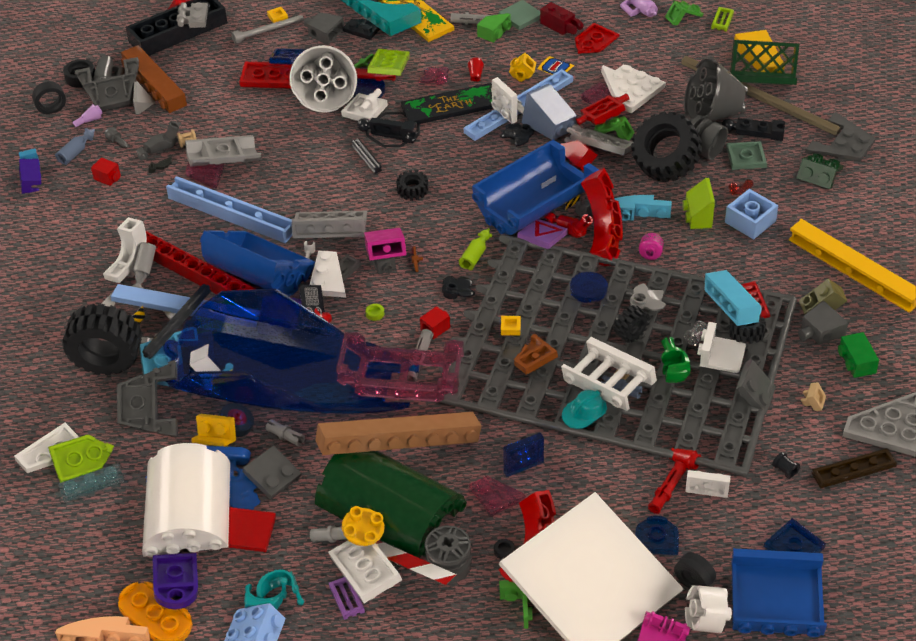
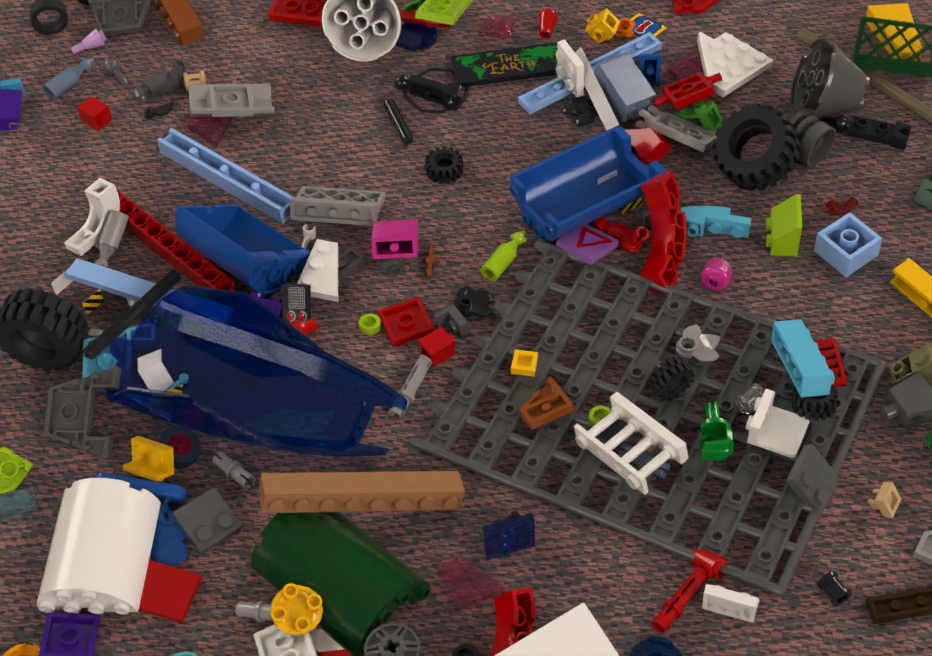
camera: 10 degrees right, 5 degrees up
(141, 98) = (153, 26): light grey slope -> none
(365, 106) = (407, 59): white plate -> none
(404, 307) = (405, 321): none -> red tile
(406, 357) = (380, 432): clear pink windscreen -> none
(445, 301) = (454, 319): none -> dark grey bracket
(529, 119) = (597, 94): none -> white sticker
(541, 68) = (625, 24): none -> orange plate
(569, 94) = (650, 67): none -> blue slope
(576, 357) = (597, 414): none -> lime tile
(584, 409) = (594, 485): teal piece -> none
(588, 287) = (629, 321): clear blue tile -> none
(746, 155) = (856, 165): sand green tile -> none

